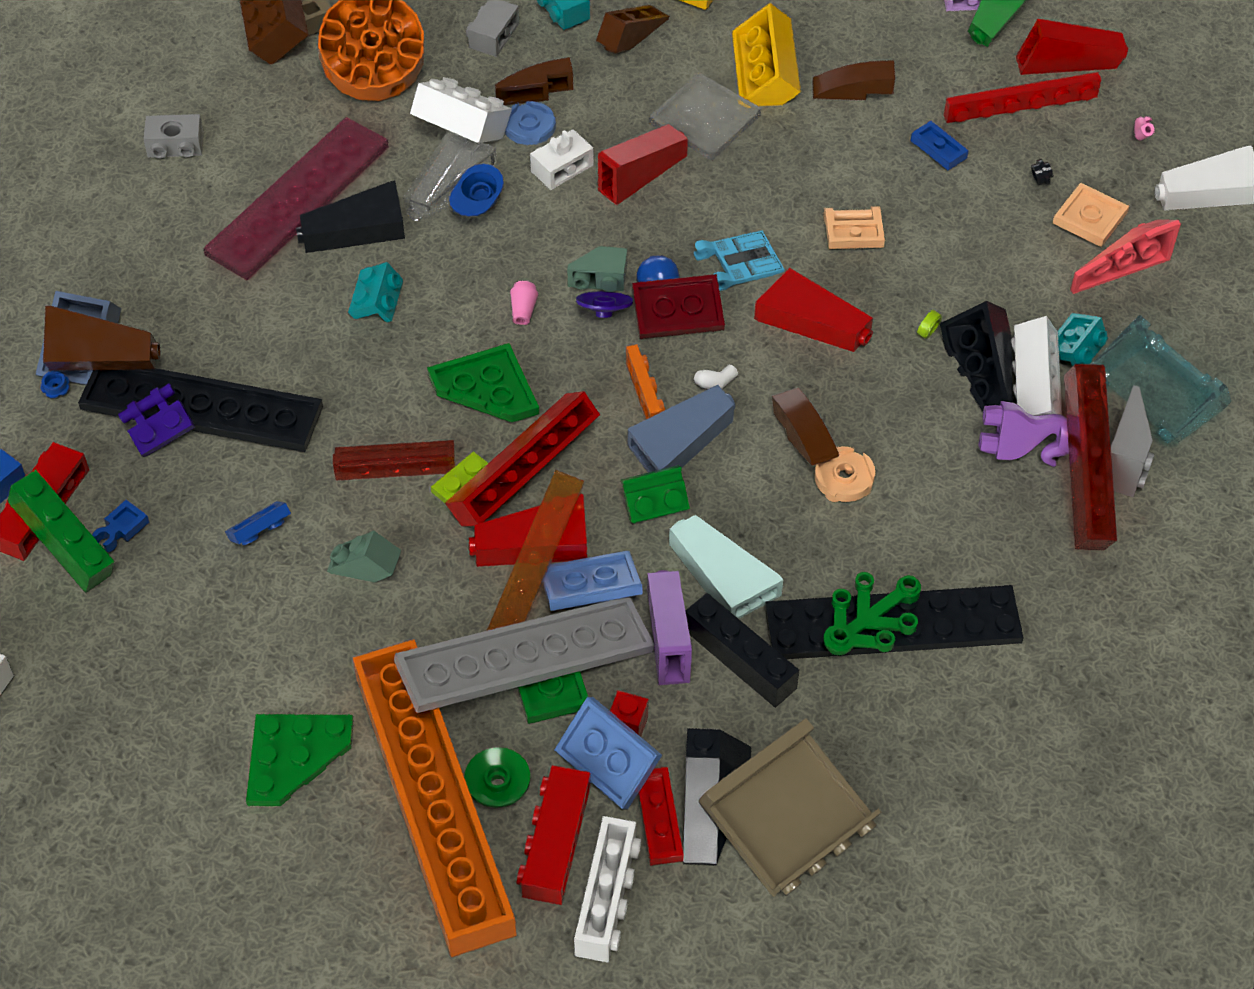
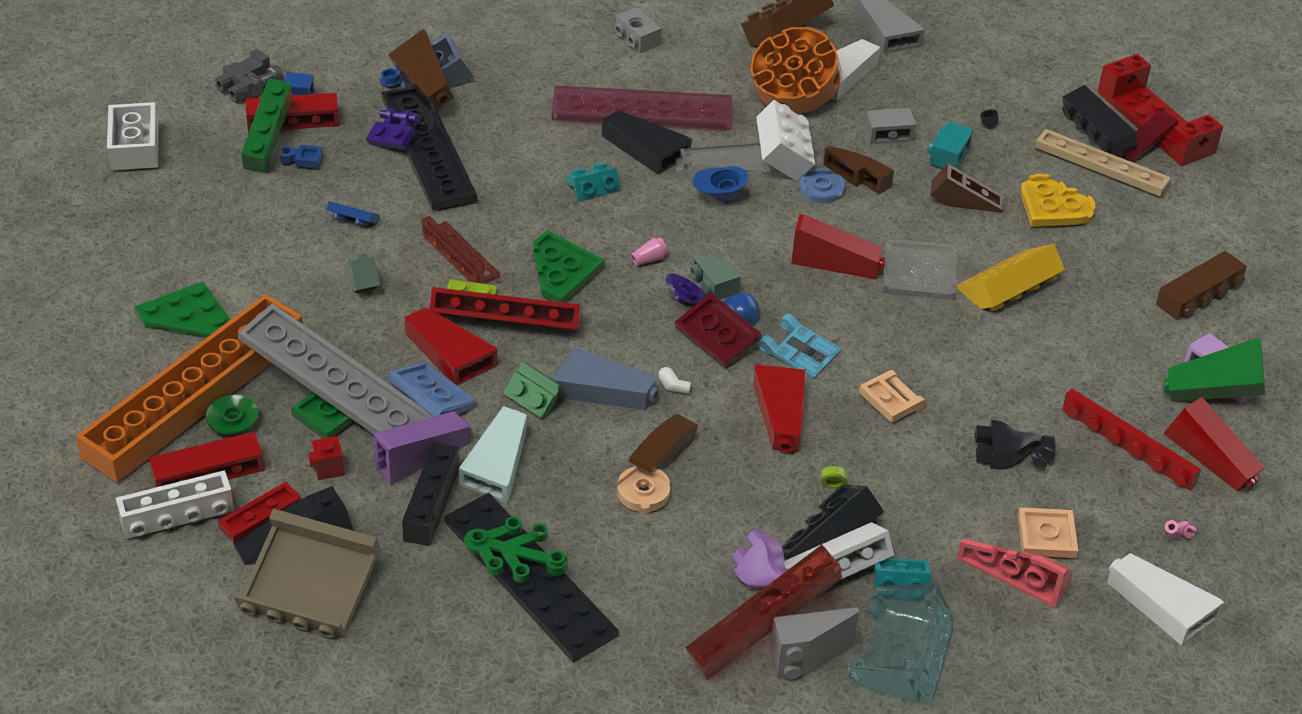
camera: 55 degrees right, 10 degrees down
(537, 551) = (427, 345): clear orange tile -> none
(561, 159) = (791, 205): white brick -> none
(609, 750) = (286, 457): medium blue tile -> none
(644, 385) = (631, 341): orange plate -> none
(855, 81) = (1043, 335): reddish brown slope -> none
(939, 145) = (1027, 410): blue plate -> none
(975, 181) = (1009, 445): none -> black hips
(1042, 172) = (1061, 483): black plate -> none

